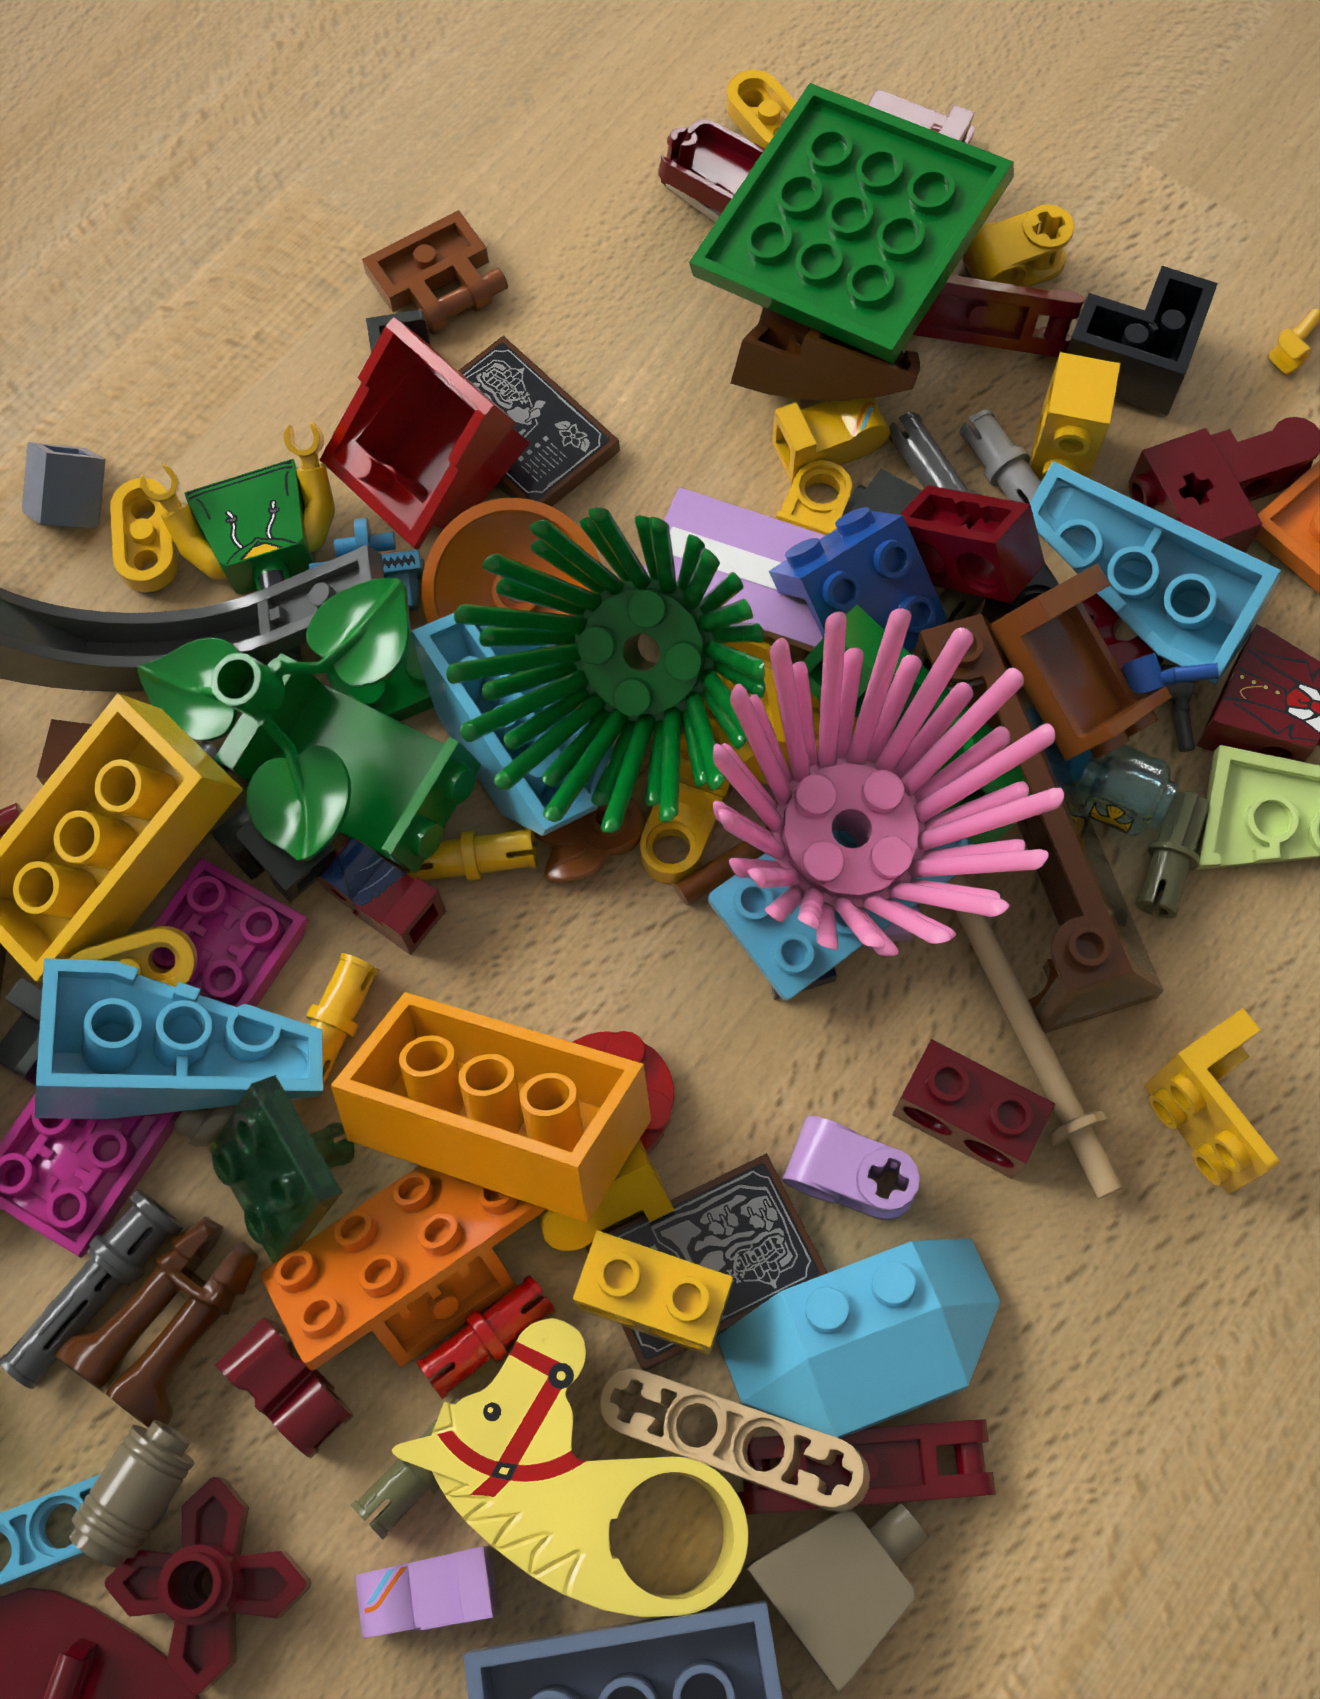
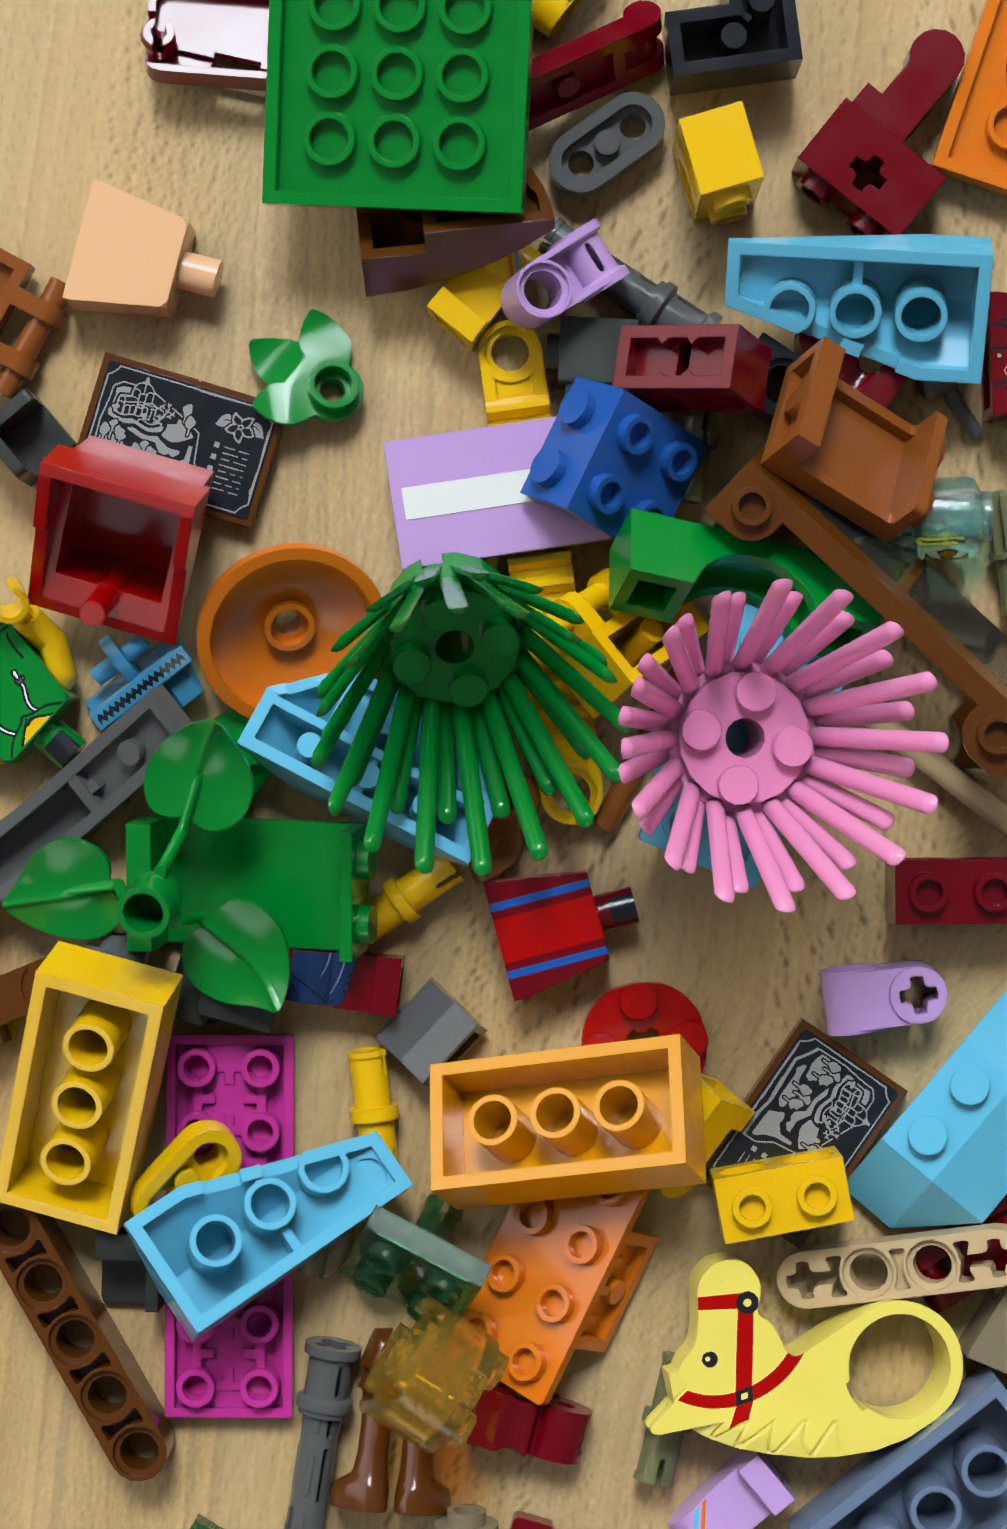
camera: 35 degrees left, 20 degrees up
(218, 1262) = (433, 1378): none -> clear yellow brick
(426, 969) = (430, 1031): none -> dark grey piece
(485, 1336) = (659, 1293): red pin -> none
(566, 283) = (135, 258): none -> light nougat torso
(587, 945) = (553, 926): none -> torso
(649, 432) = (300, 369): none -> green plate
(908, 437) = (570, 273): none -> lavender piece
(984, 383) = (605, 146): none -> dark grey plate
(1004, 462) = (670, 227): light grey pin -> none
(1146, 674) = (916, 409): blue hand -> none

